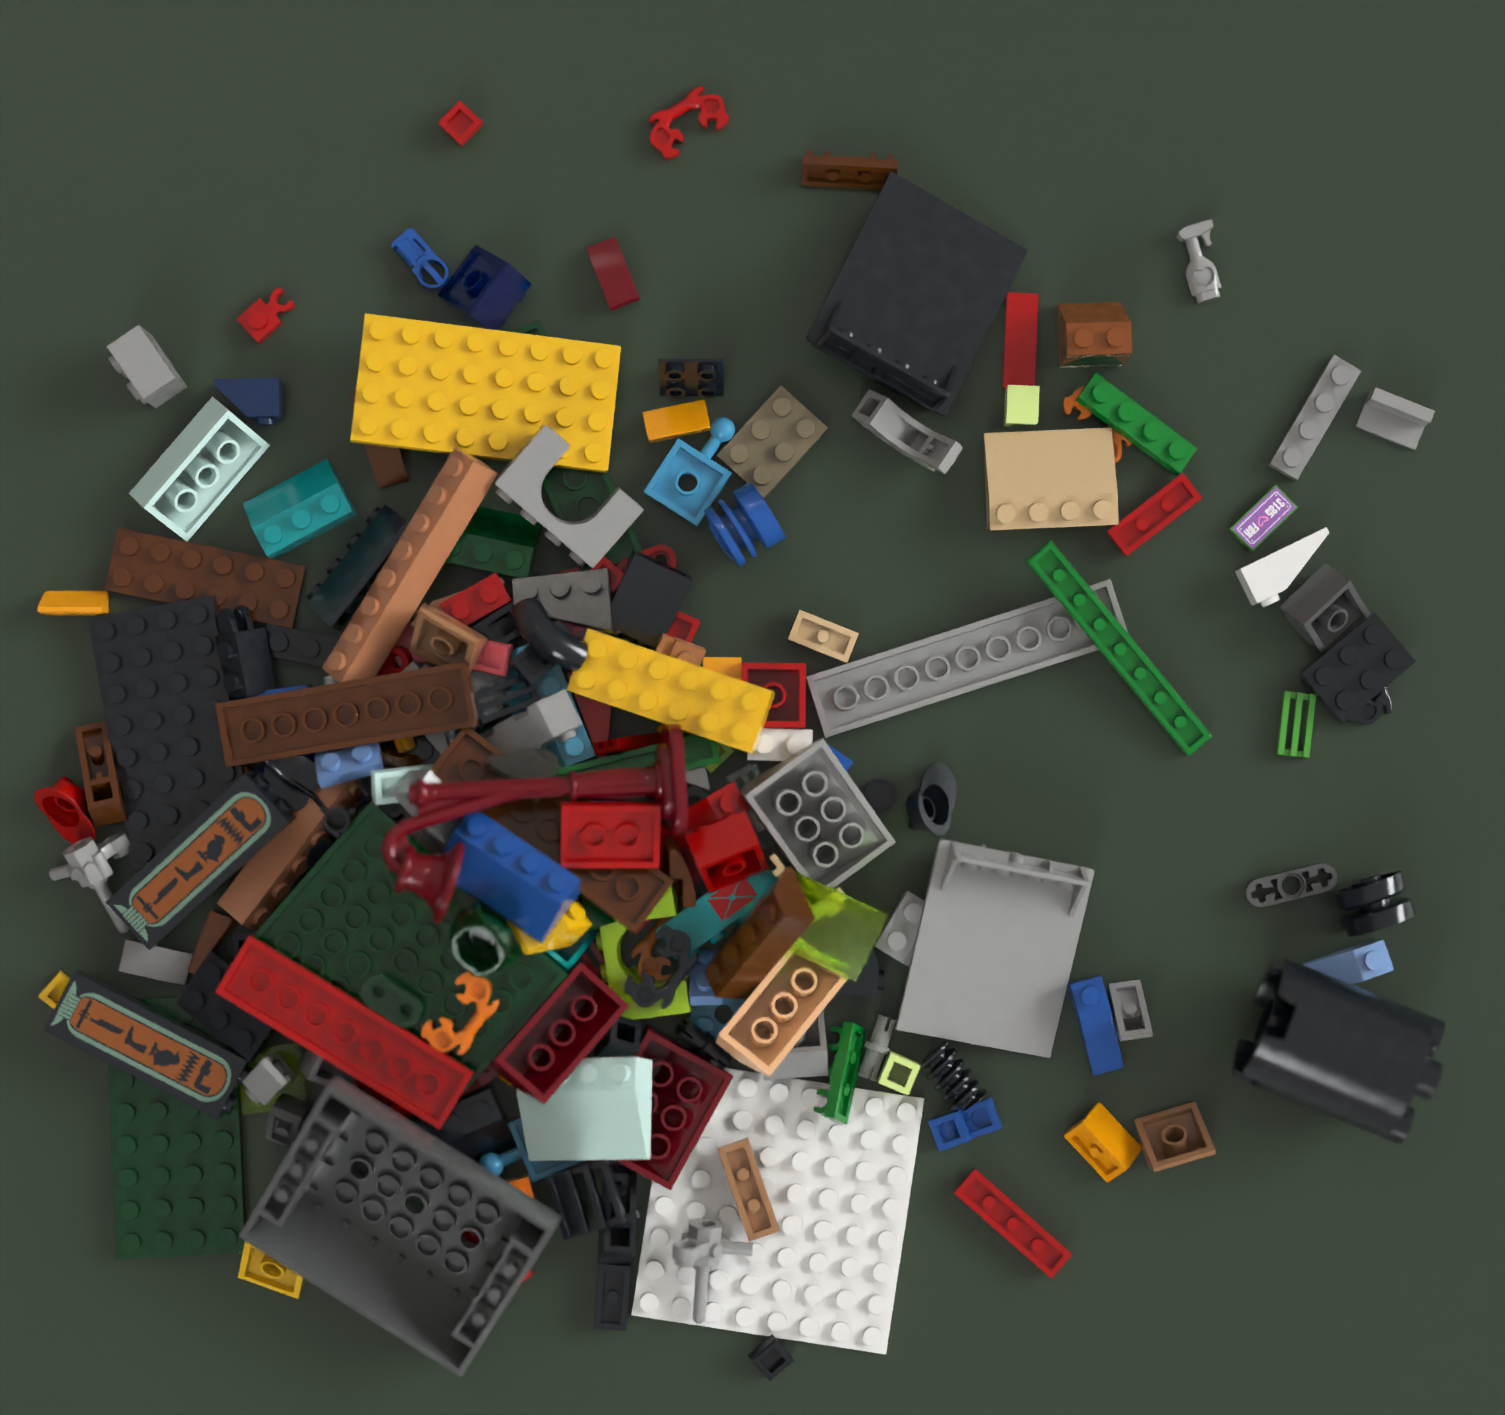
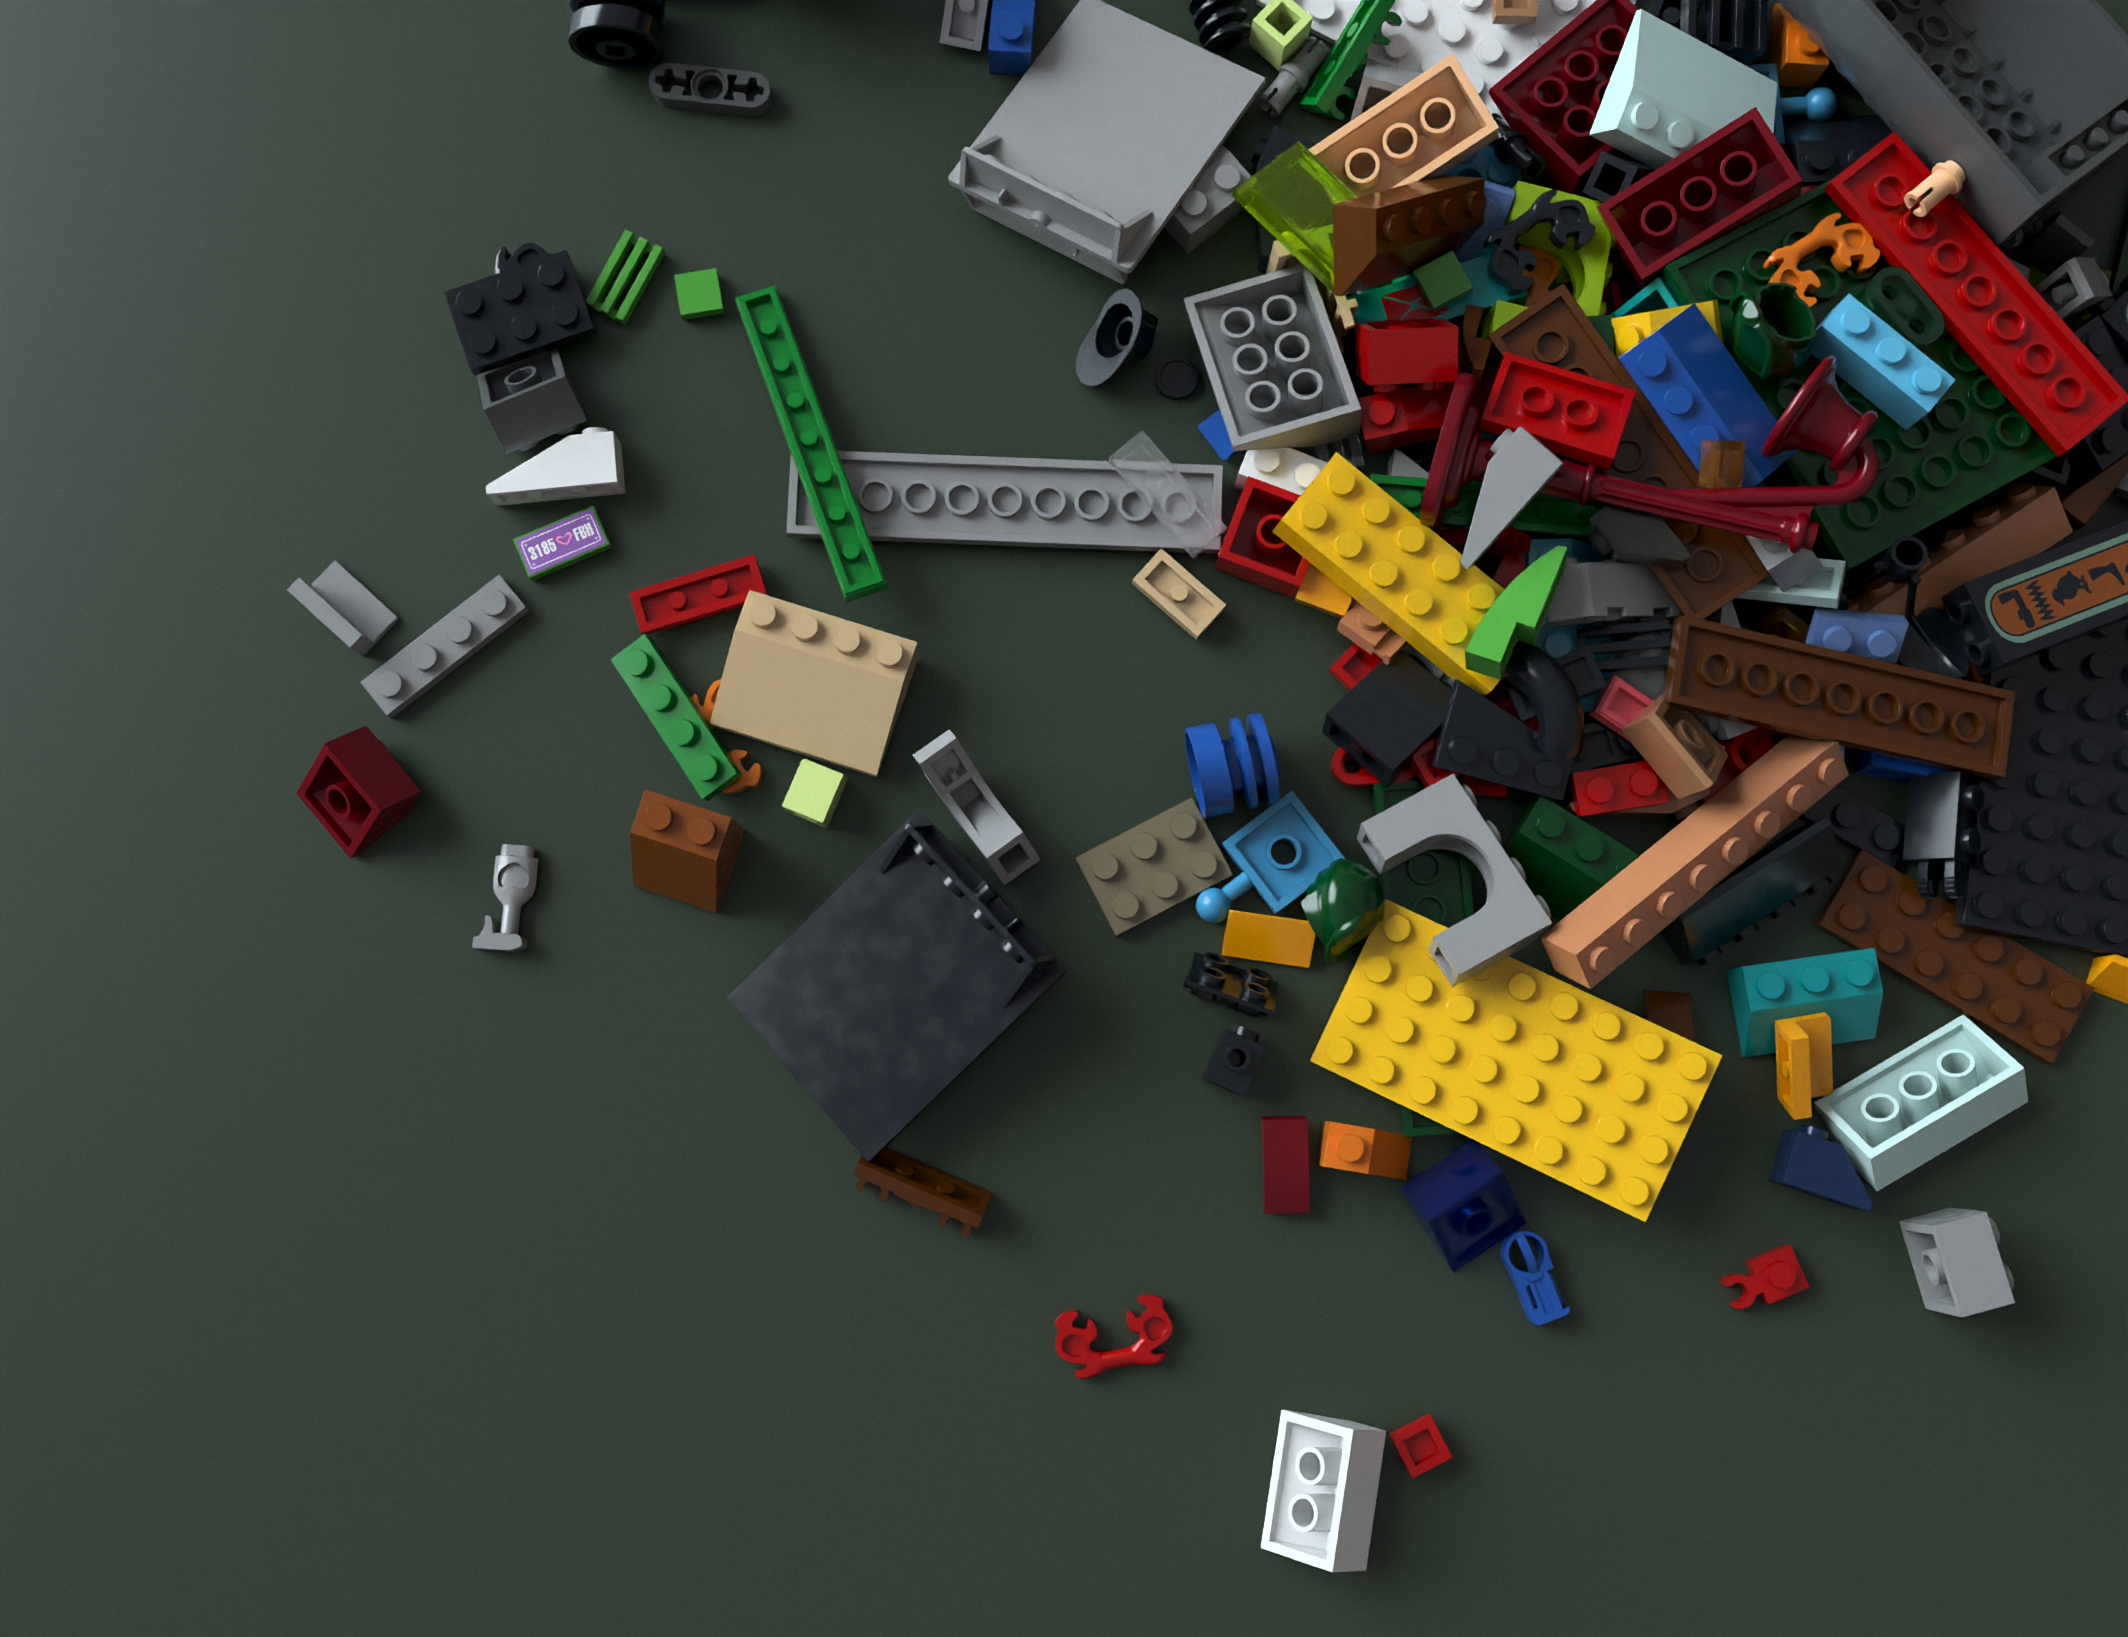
camera: 160 degrees left, 5 degrees down
(287, 466) = (1803, 1061): none -> light orange panel
(398, 1093) = (1944, 180): none -> light nougat pin
(399, 950) = (1880, 362): none -> medium azure brick
(486, 828) = (1721, 463): none -> clear orange slope
(514, 71) = (1323, 1491): none -> white slope
(563, 301) = (1364, 1150): none -> orange slope
(590, 680) = (1516, 614): none -> bright green slope
(627, 760) = (1509, 484): none -> light grey slope
(635, 455) = (1344, 906): none -> dark green helmet
(671, 329) = (1234, 1060): none -> black brick
(718, 917) = (1442, 281): none -> bright green tile
(856, 700) = (1167, 494): none -> clear tile
(1020, 339) = (783, 881): red tile -> none
(1239, 731) = (699, 294): none -> bright green tile
(1331, 296) = (357, 790): none -> dark red slope

